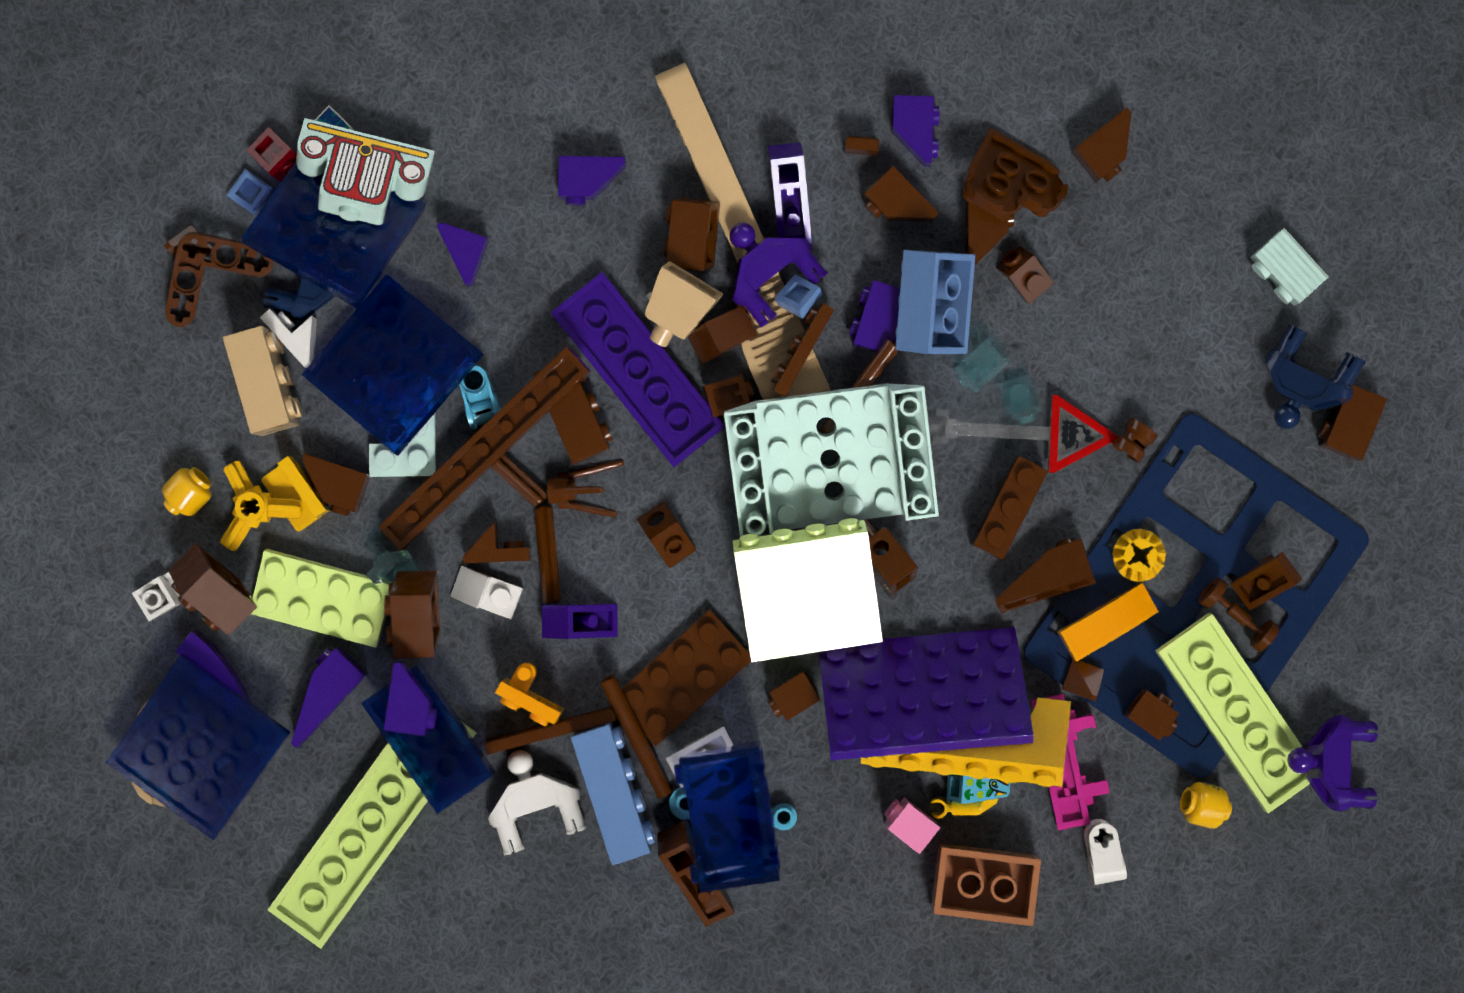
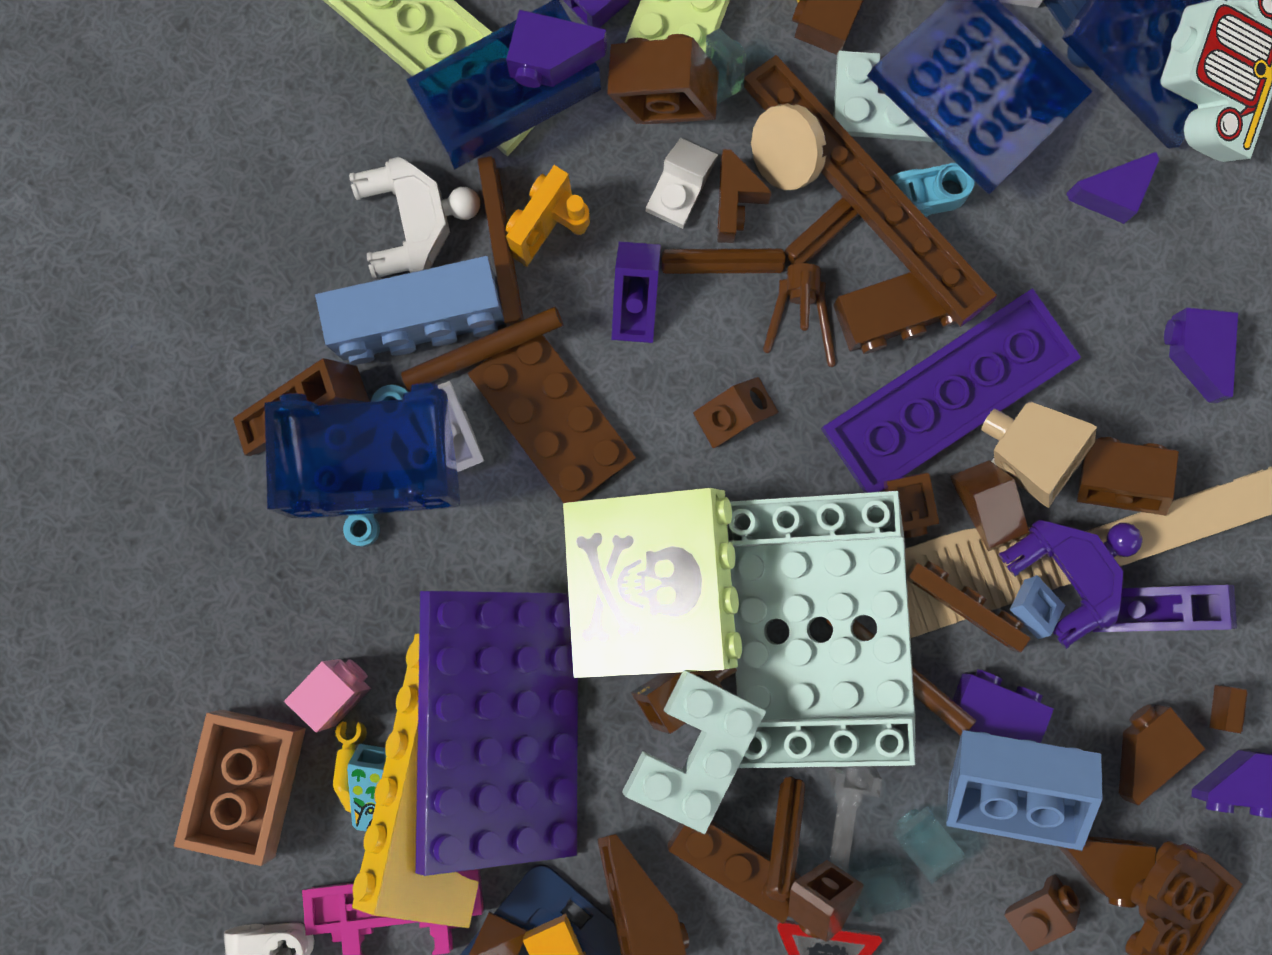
camera: 90 degrees right, 5 degrees down
(456, 512) = (788, 146): none -> tan tile
(792, 696) = (513, 554): reddish brown brick -> none
(913, 525) = (697, 789): none -> light aqua plate
(986, 473) = (786, 839): none -> reddish brown axle
(1028, 443) = (823, 900): none -> reddish brown slope

